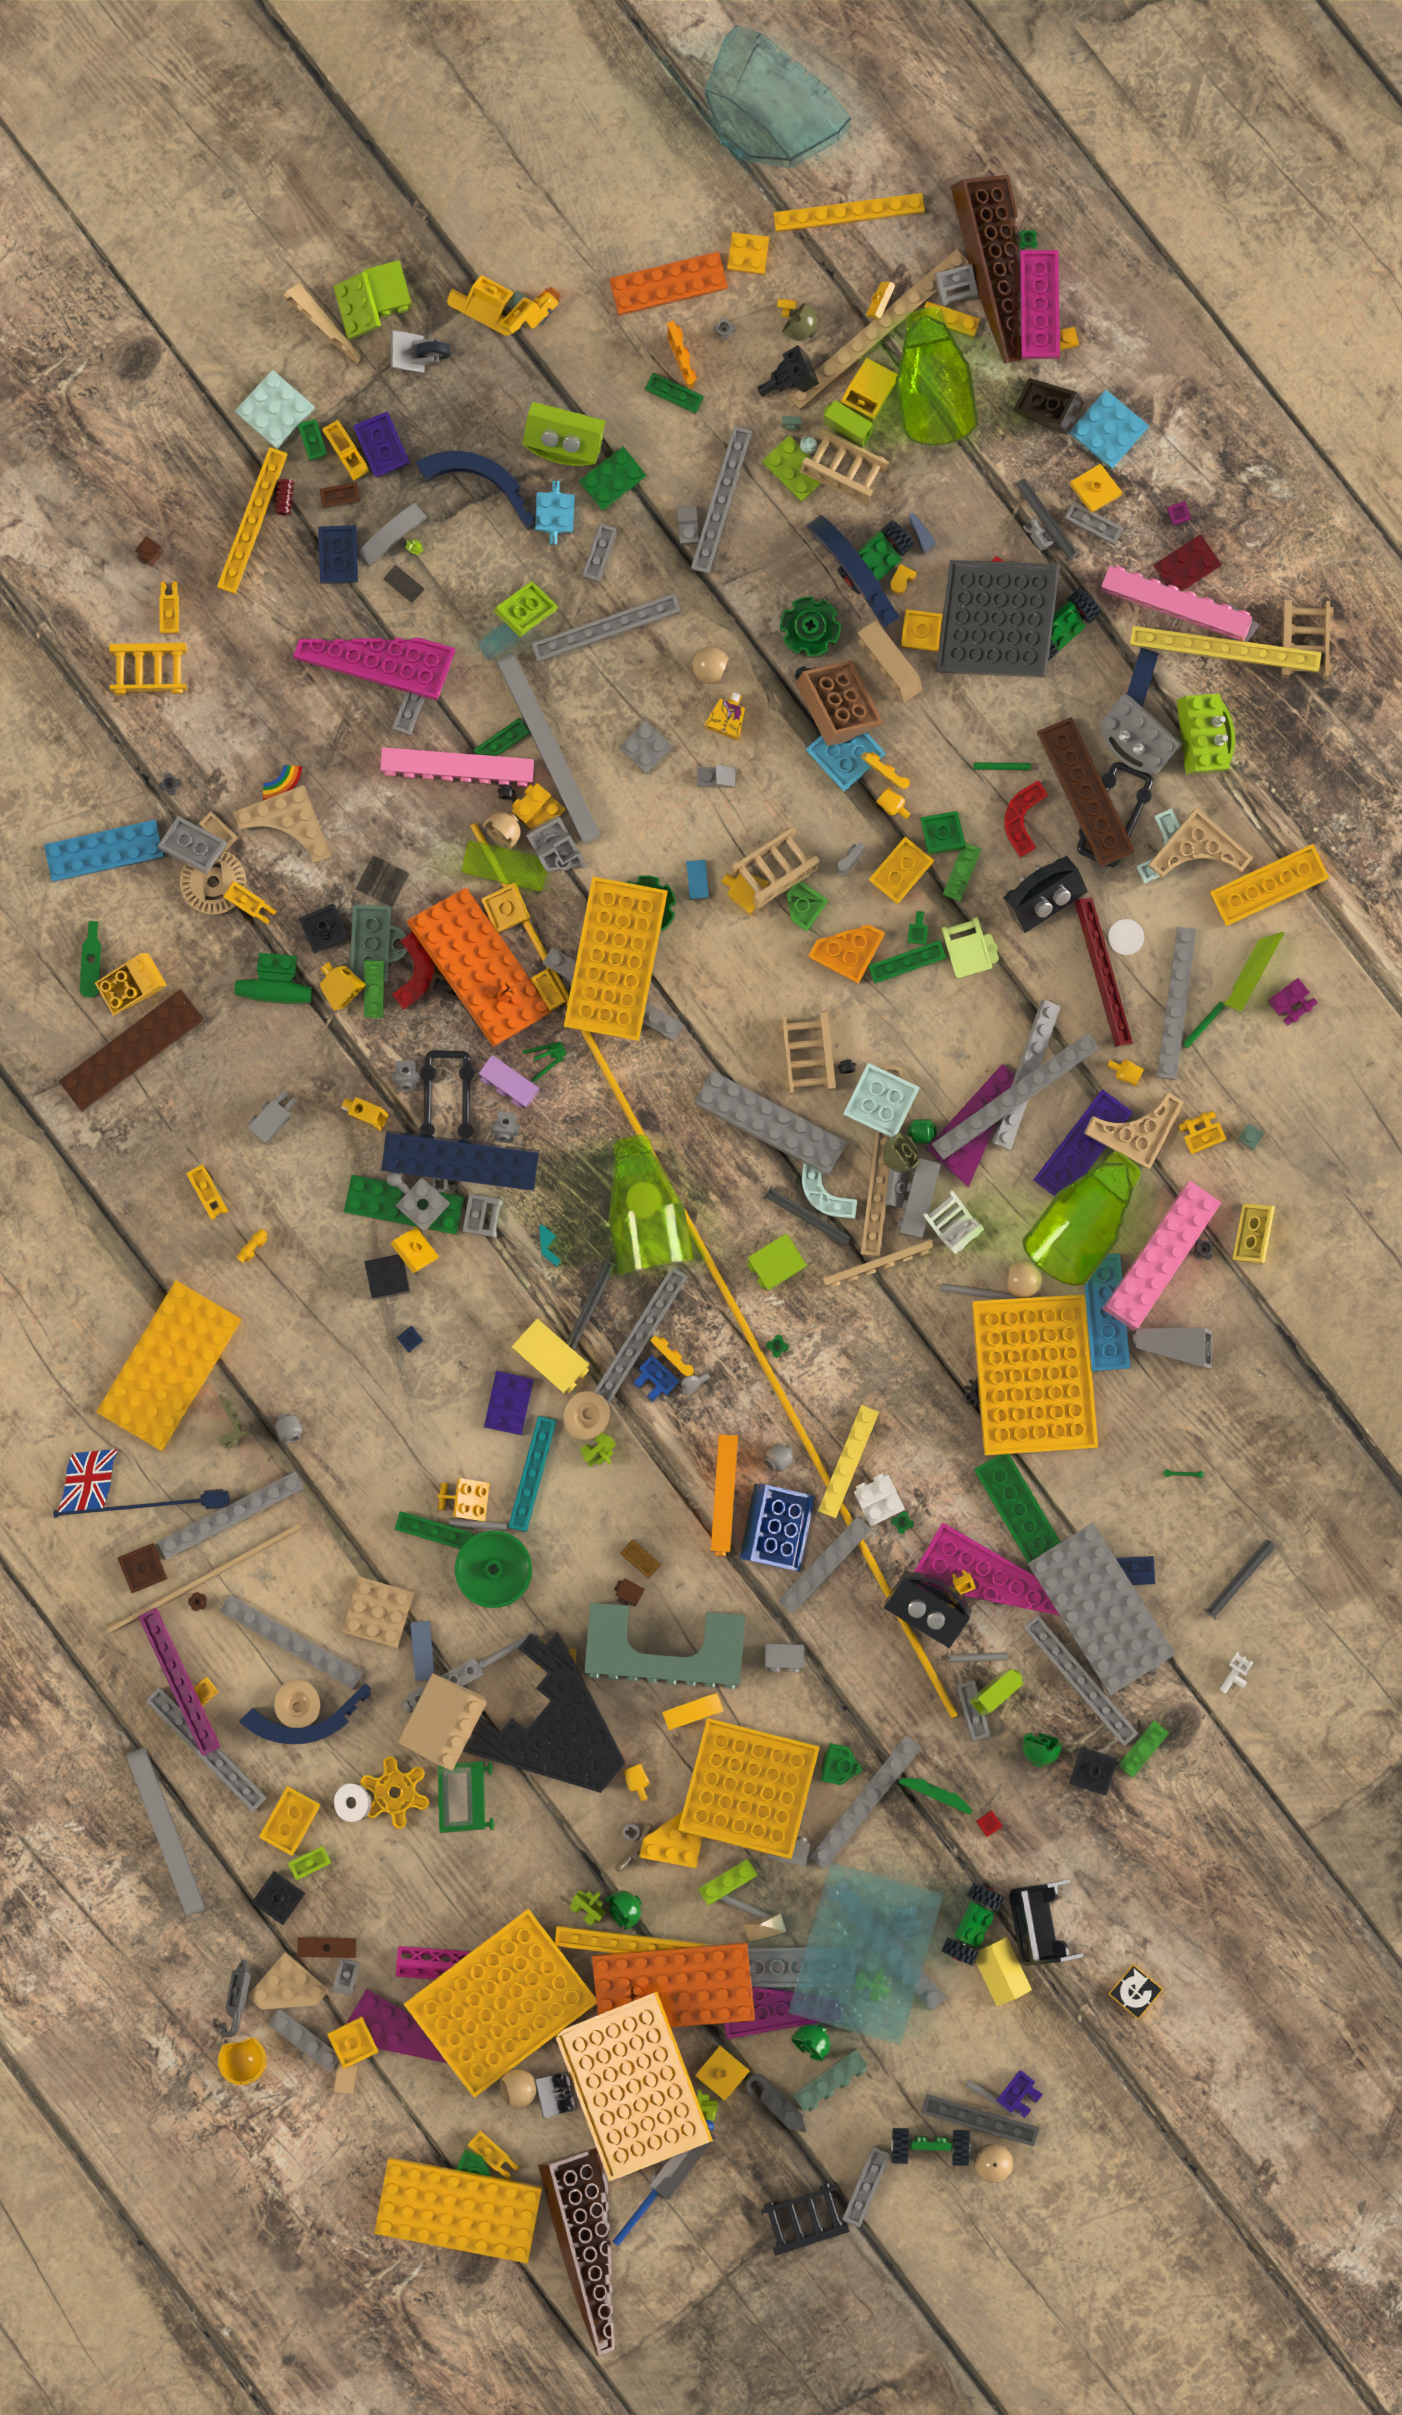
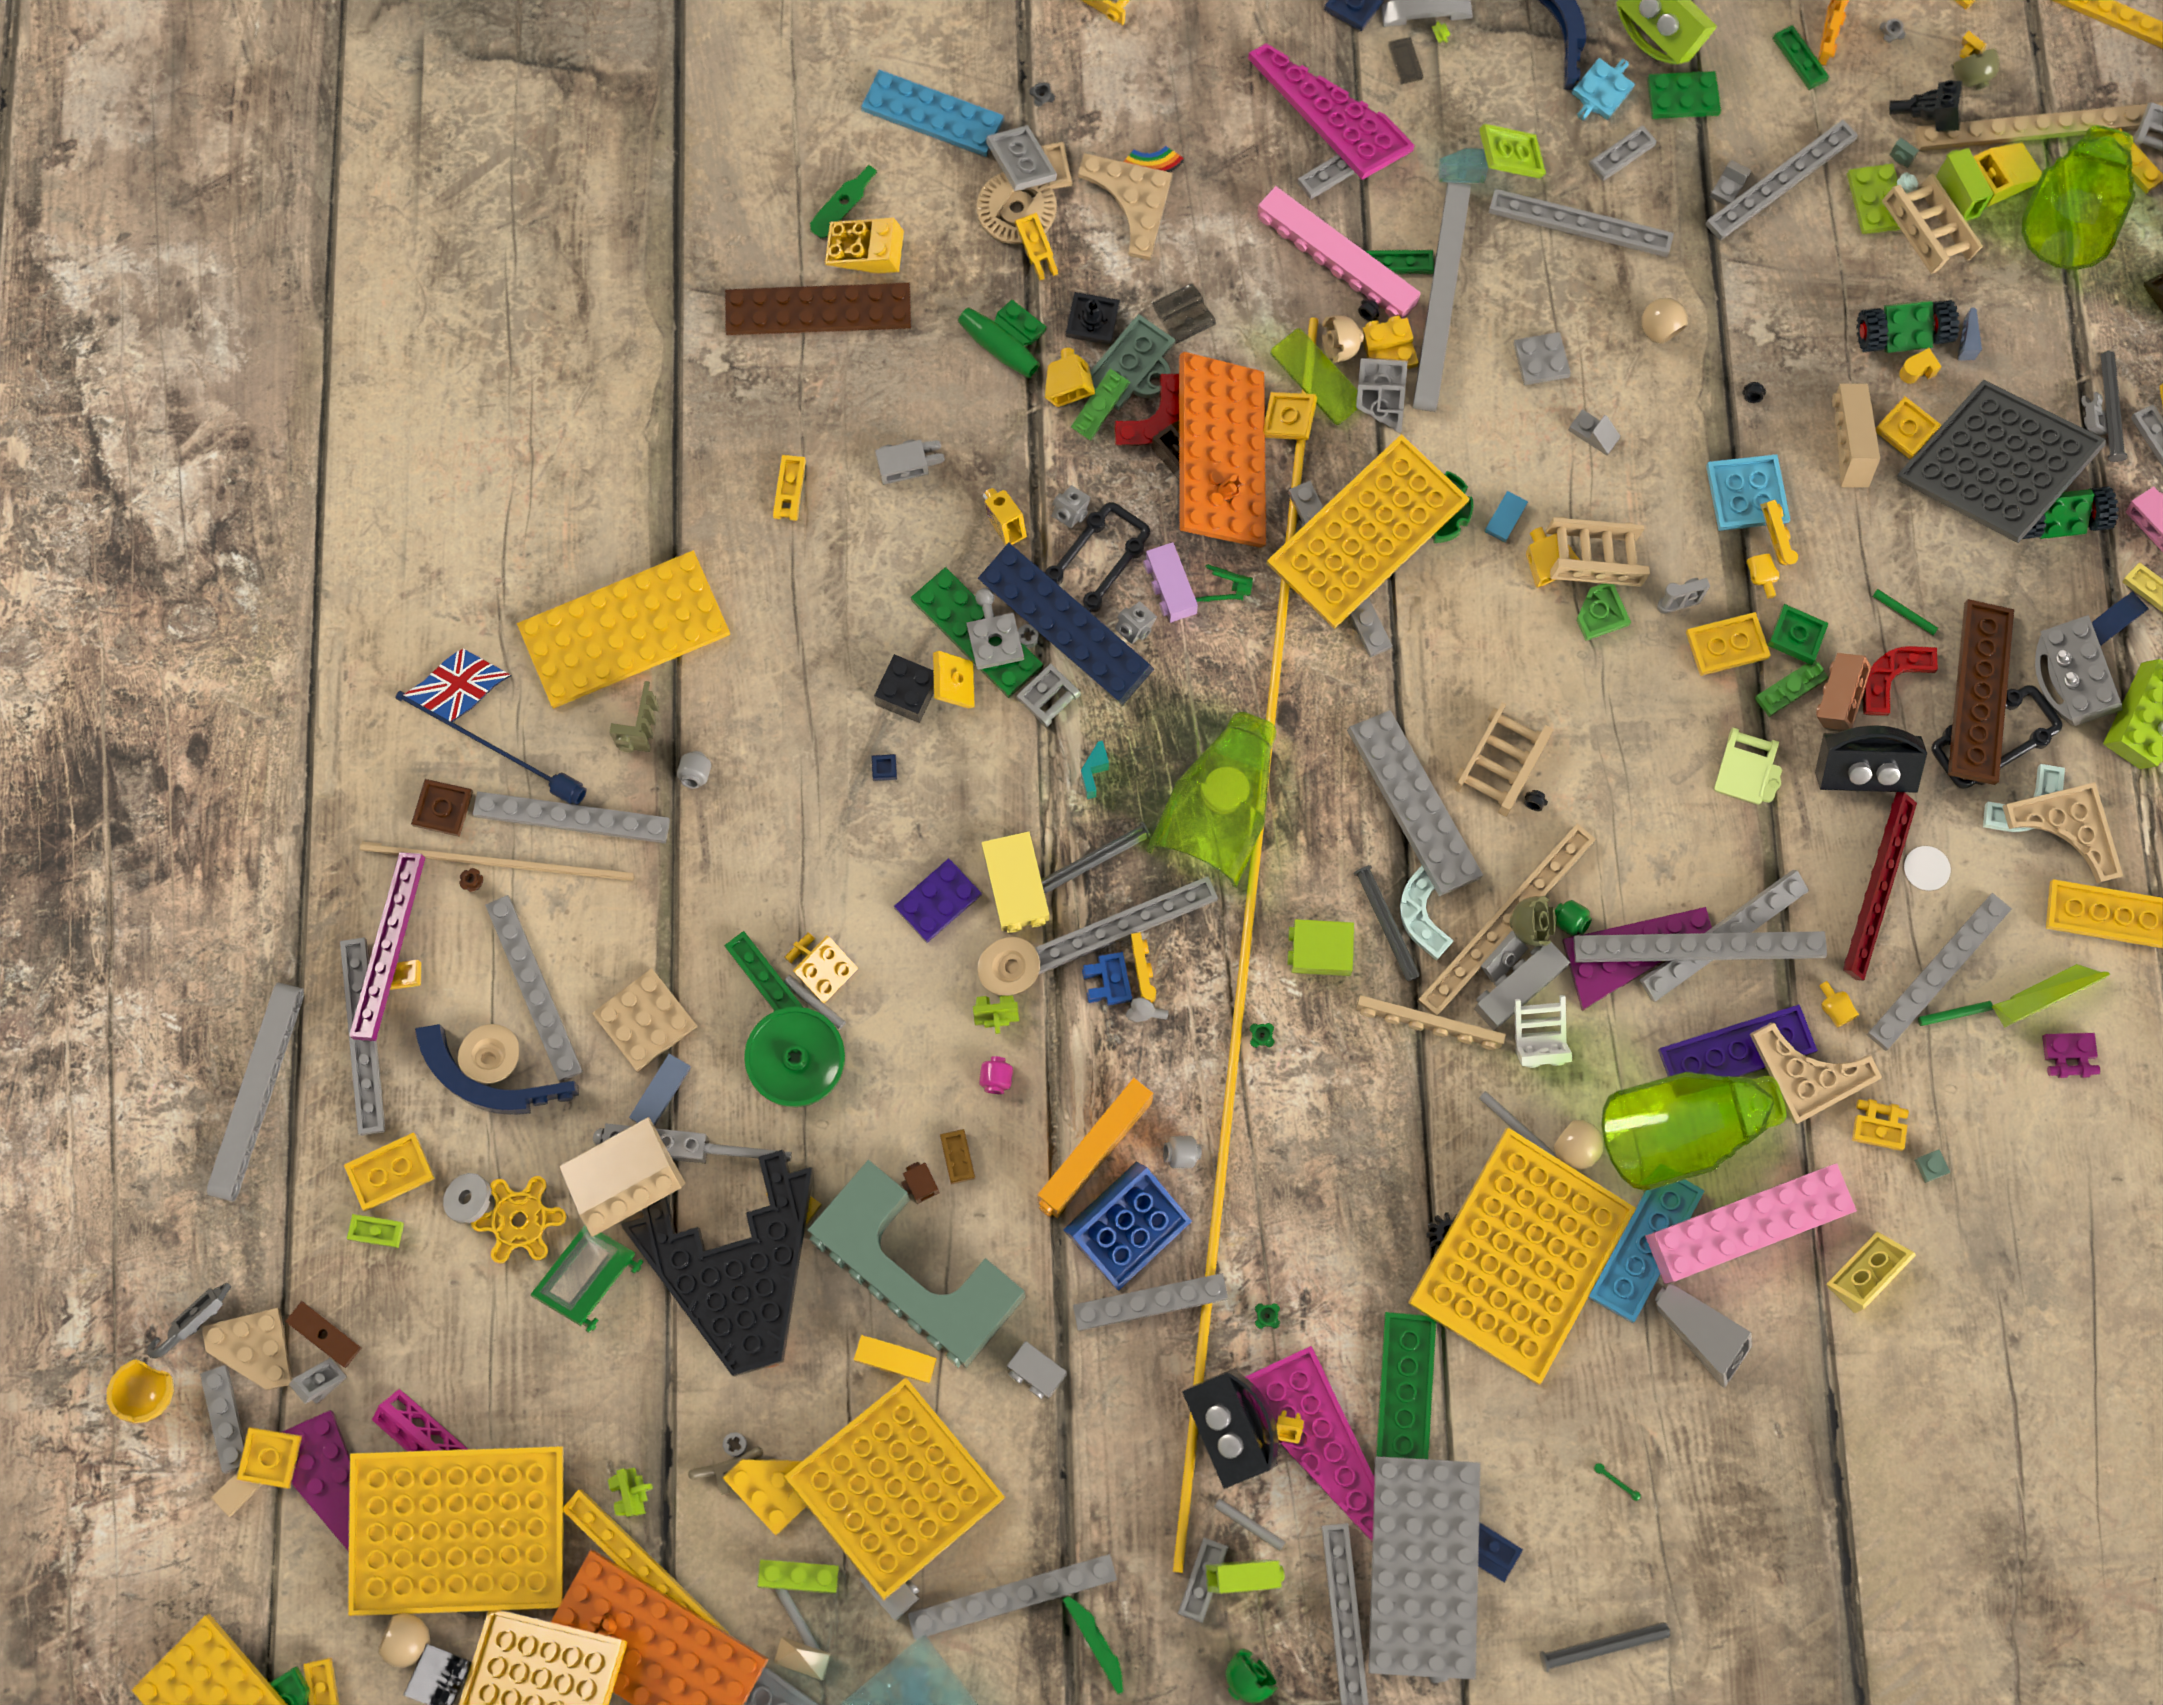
camera: 35 degrees right, 10 degrees down
(247, 1252) = (785, 568): yellow plate -> none
(278, 1897) = (316, 1245): black plate -> none
(532, 1474) = (908, 989): teal tile -> none
(548, 990) = (1276, 521): yellow plate -> none
(624, 1908) = (666, 1524): green cylinder -> none
(628, 1490) = (996, 1075): none -> dark pink head
(636, 1780) = (781, 1391): yellow piece -> none
(727, 717) = (1646, 382): yellow torso -> none
(824, 630) = (1808, 347): green piece -> none
(838, 702) = (1773, 436): medium nougat slope -> none
(839, 1765) = (1012, 1533): green plate -> none
(843, 552) = (1884, 321): dark blue arch -> none
(848, 951) = (1616, 687): light orange plate -> none
(848, 1461) = (1253, 1208): light yellow plate -> none
(878, 1499) = (1258, 1272): white plate -> none
(880, 300) = (2072, 97): yellow plate -> none
(881, 1101) = (1549, 855): light aqua plate -> none
(907, 962) = (1672, 737): green plate -> none
(918, 932) = (1704, 714): green plate -> none
(997, 854) = (1843, 691): none -> nougat brick
(1208, 1245) = (1808, 1250): dark grey plate -> none

